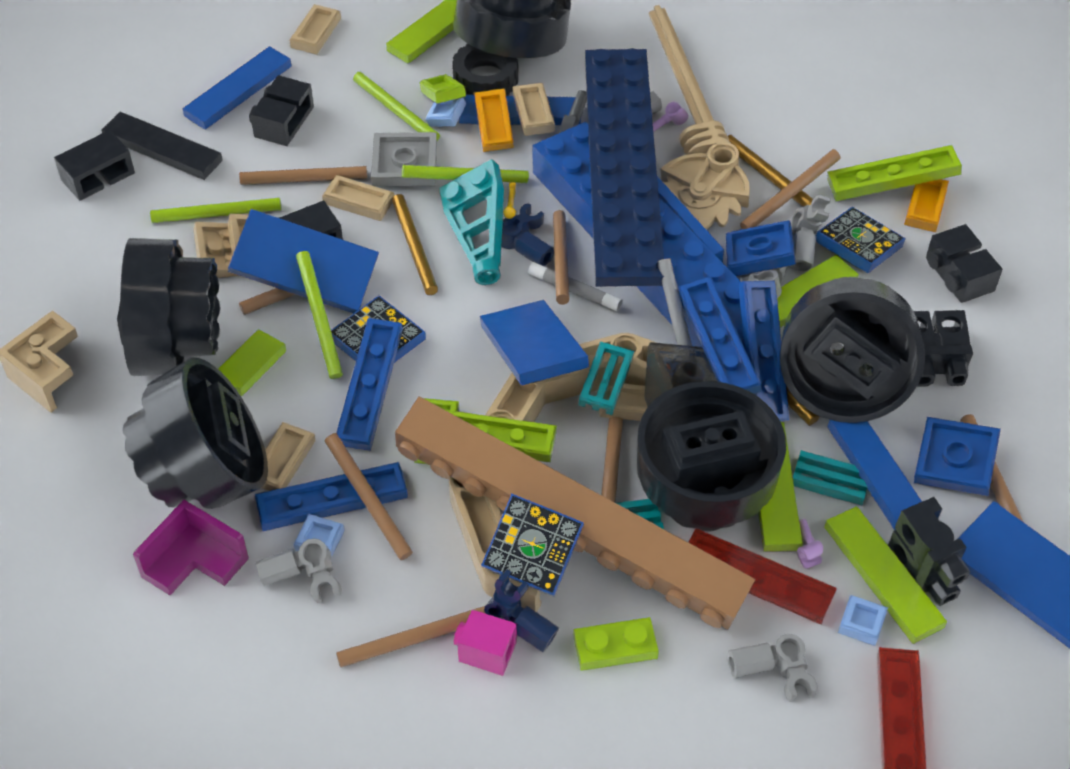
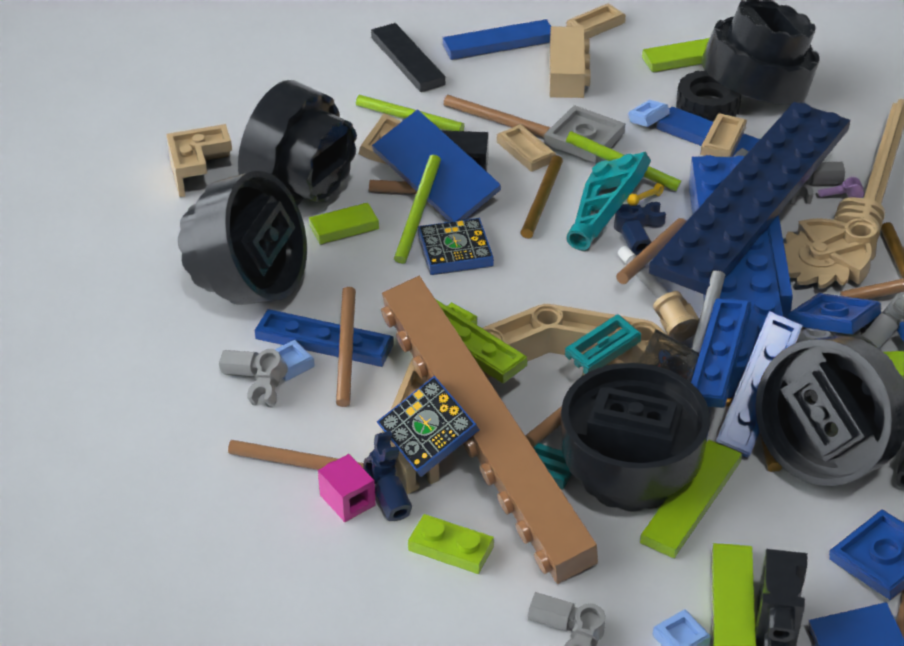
camera: 35 degrees right, 10 degrees down
(101, 154) = (355, 41): black piece -> none
(186, 542) = (186, 315): magenta panel -> none
(281, 110) = (516, 66): black piece -> none
(286, 454) = (312, 295): tan tile -> none
(332, 86) = (569, 62): none -> tan brick
(369, 383) = (427, 262): blue tile -> none
(392, 104) = (612, 95): lime bar -> none
(442, 88) = (657, 94): lime tile -> none
(494, 120) = (683, 133): light orange tile -> none
(534, 342) = (566, 295): blue tile -> none
(645, 319) = (676, 316): none -> tan piece
(772, 580) = (623, 562): clear red tile -> none
(809, 553) = (679, 561): lavender hand -> none
(831, 472) = (755, 514): teal tile -> none
(875, 467) = (800, 522): blue tile -> none

